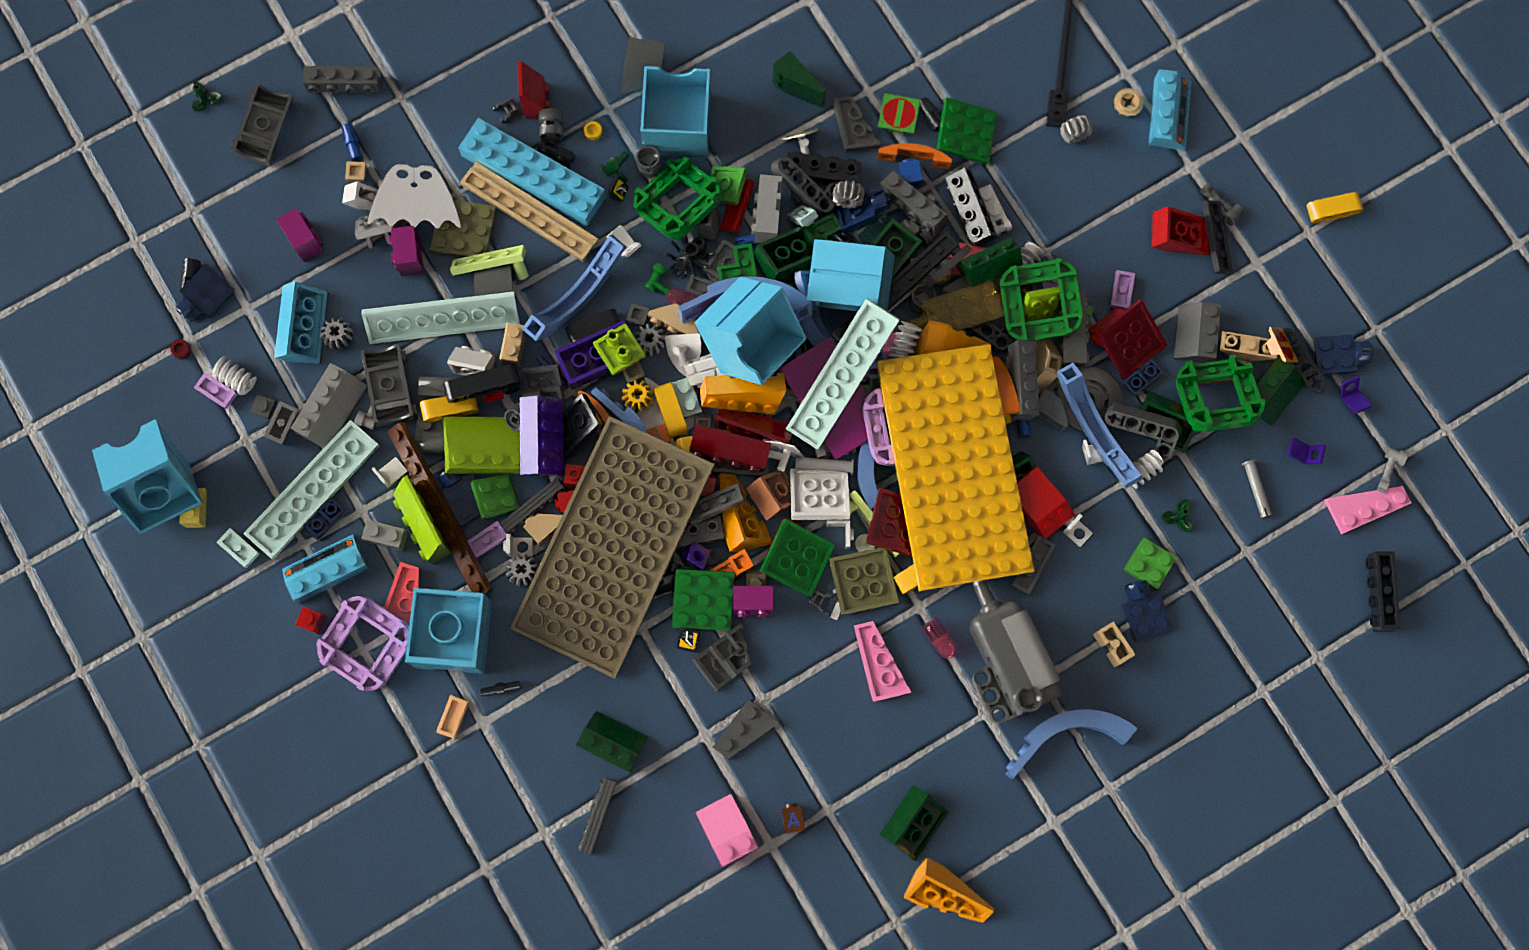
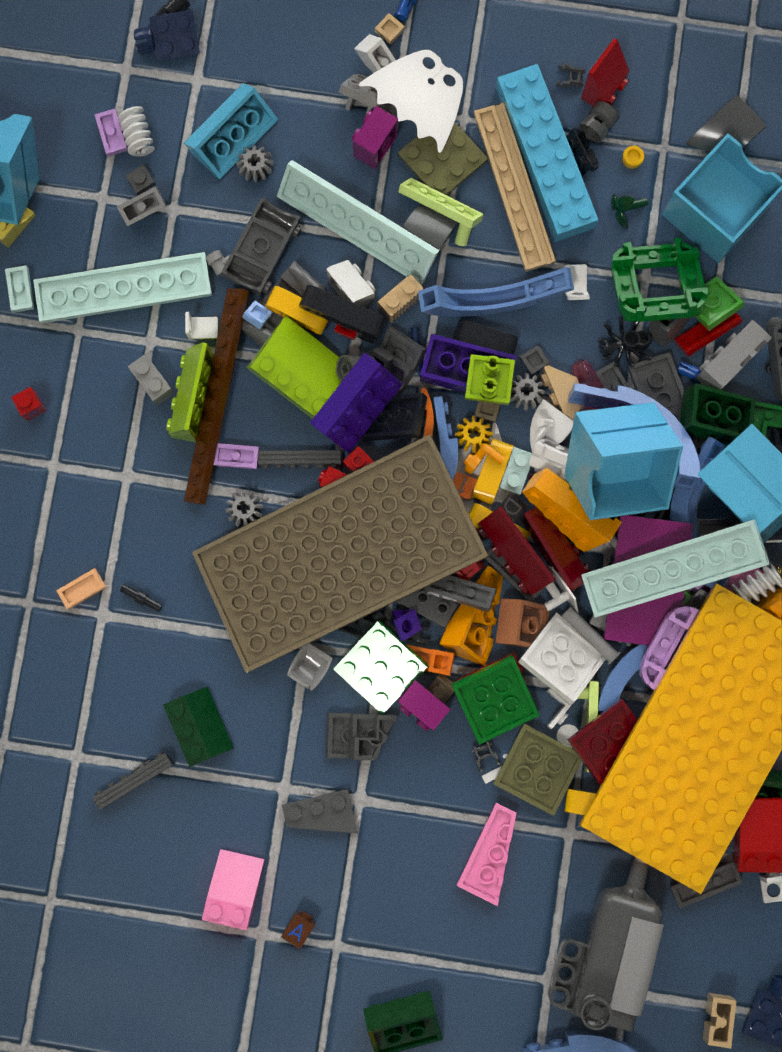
camera: 45 degrees right, 5 degrees up
(180, 349) = (111, 71): dark red tile -> none
(300, 234) = (294, 48): magenta brick -> none
(324, 569) = (77, 367): medium azure slope -> none
(325, 518) = (112, 323): dark blue slope -> none
(329, 406) = (196, 224): light grey slope -> none
(339, 630) = (27, 468): lavender plate -> none
(401, 592) = (124, 448): coral wing -> none
(423, 432) = (257, 315): none -> light blue tile
(448, 630) = (133, 512): medium azure piece -> none
(460, 496) = (247, 401): dark blue plate -> none
(494, 496) = (274, 422): bright green plate -> none
(510, 546) = (253, 478): white bracket -> none
(542, 527) = (292, 484): tan slope -> none
(618, 189) = (611, 229): slope -> none
(648, 161) = (660, 220): dark grey wheel -> none
(652, 414) = (473, 461): none -> light orange plate
(654, 638) = (309, 666): none -> light grey piece
(659, 270) = (572, 342): green piece -> none
(688, 640) = (338, 692): slope -> none
(743, 266) = (666, 393): green plate -> none
(802, 216) = (760, 389): light aqua plate -> none
(939, 638) = (564, 878): clear pink arm -> none

